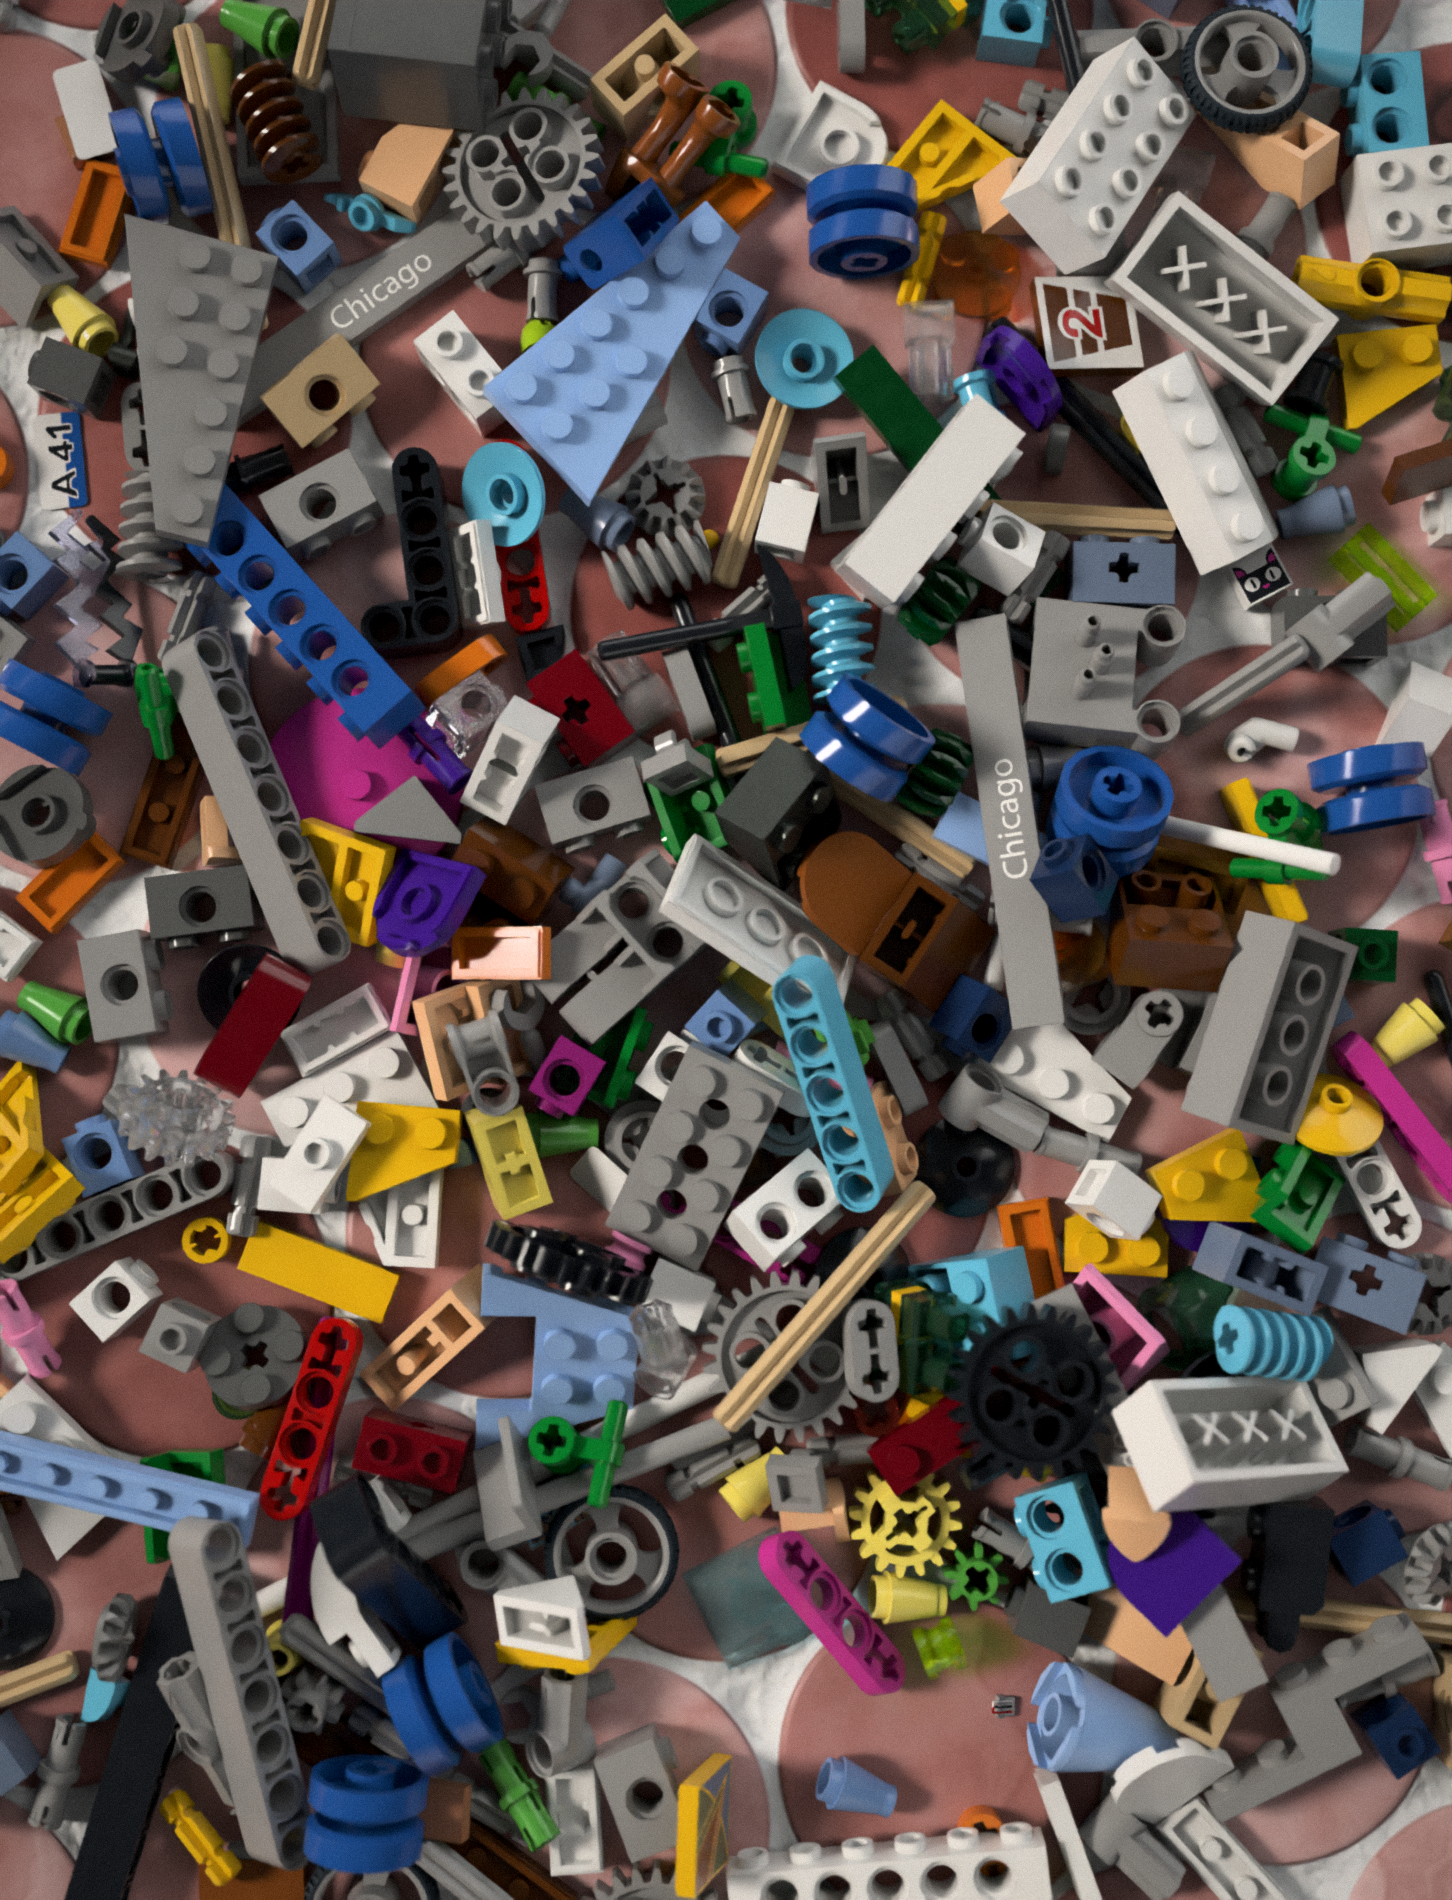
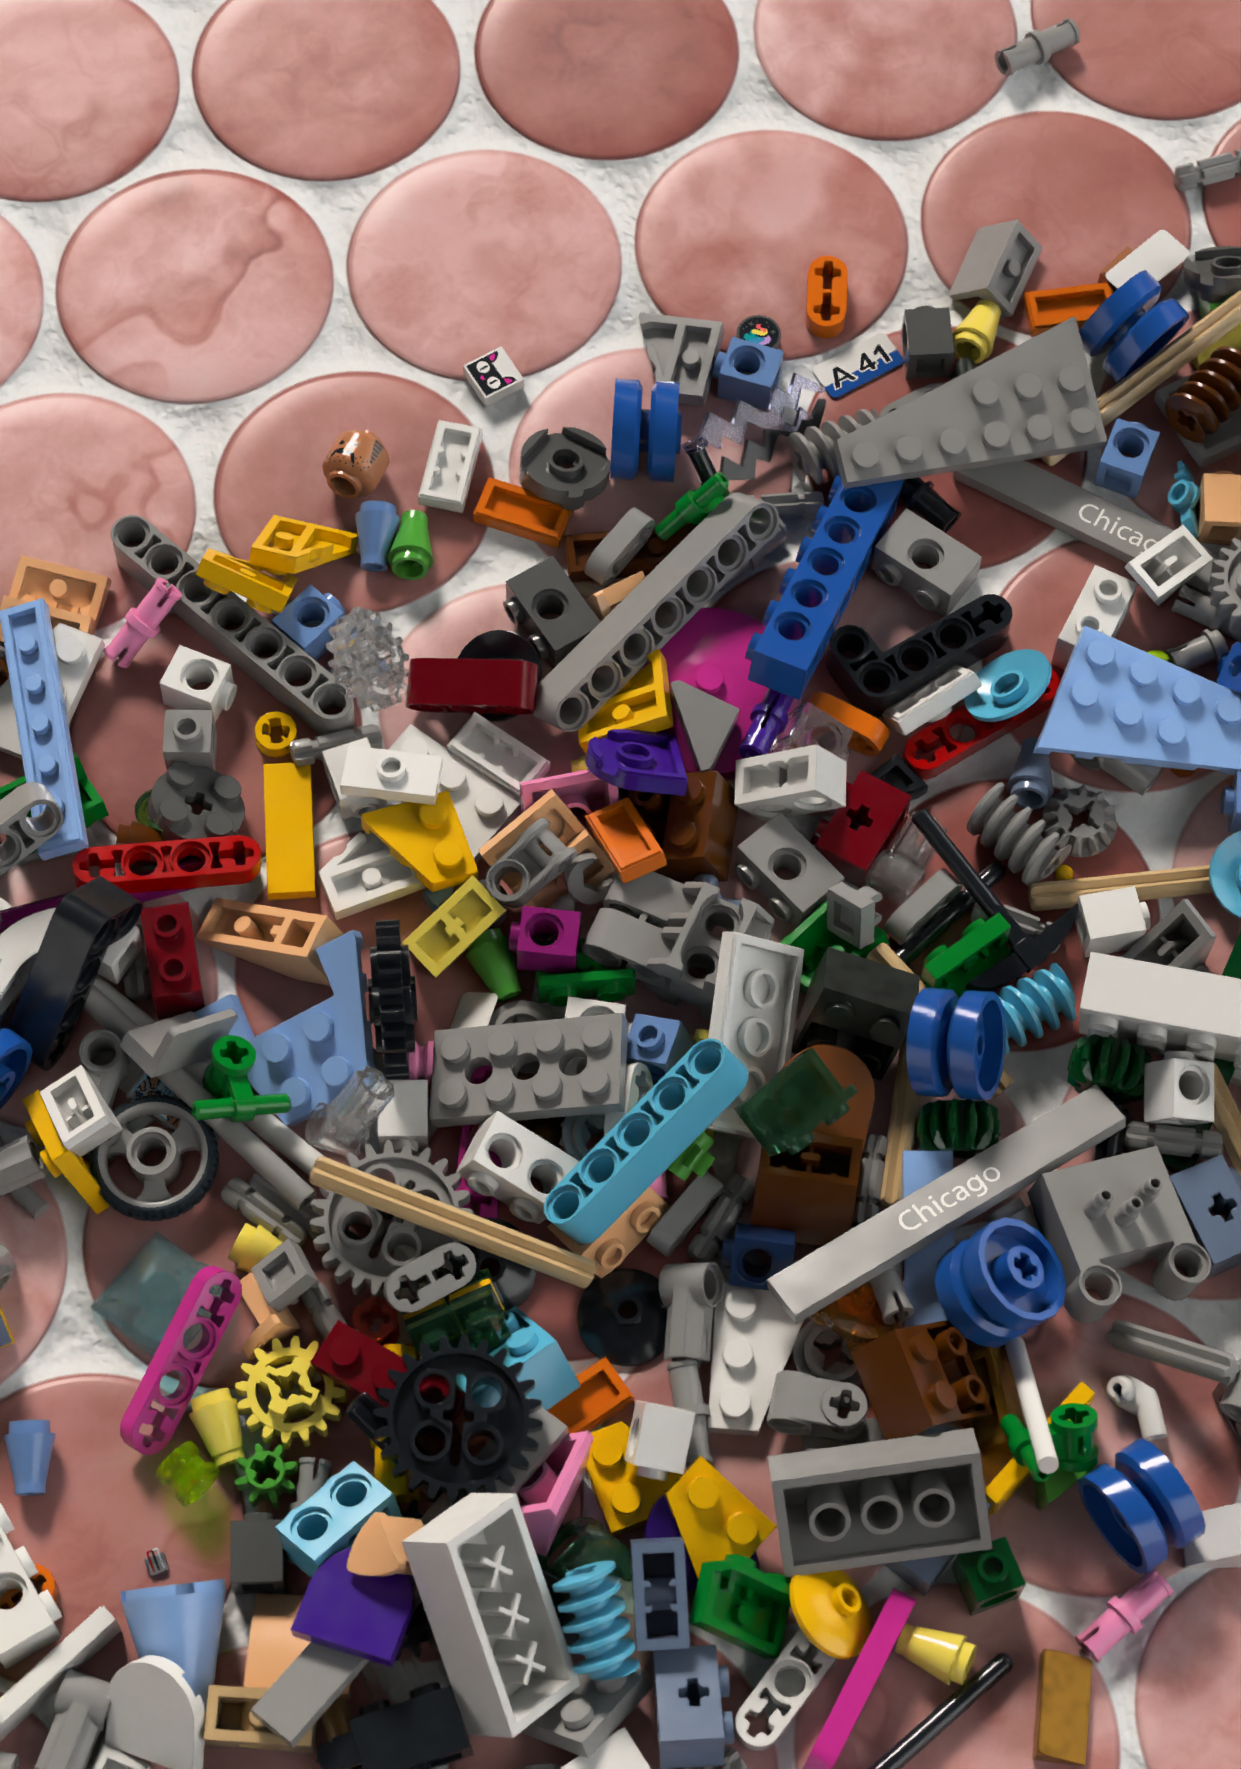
camera: 65 degrees right, 20 degrees down
(104, 965) = (465, 562): light grey brick -> none
(164, 804) = (619, 546): none -> light grey beam
(290, 400) = (997, 500): tan brick -> none
(443, 269) = (1168, 564): none -> white slope
(734, 388) = (1208, 828): light grey pin -> none
(861, 921) = (794, 1104): none -> clear green bracket
(1074, 878) = (925, 1266): dark blue brick -> none

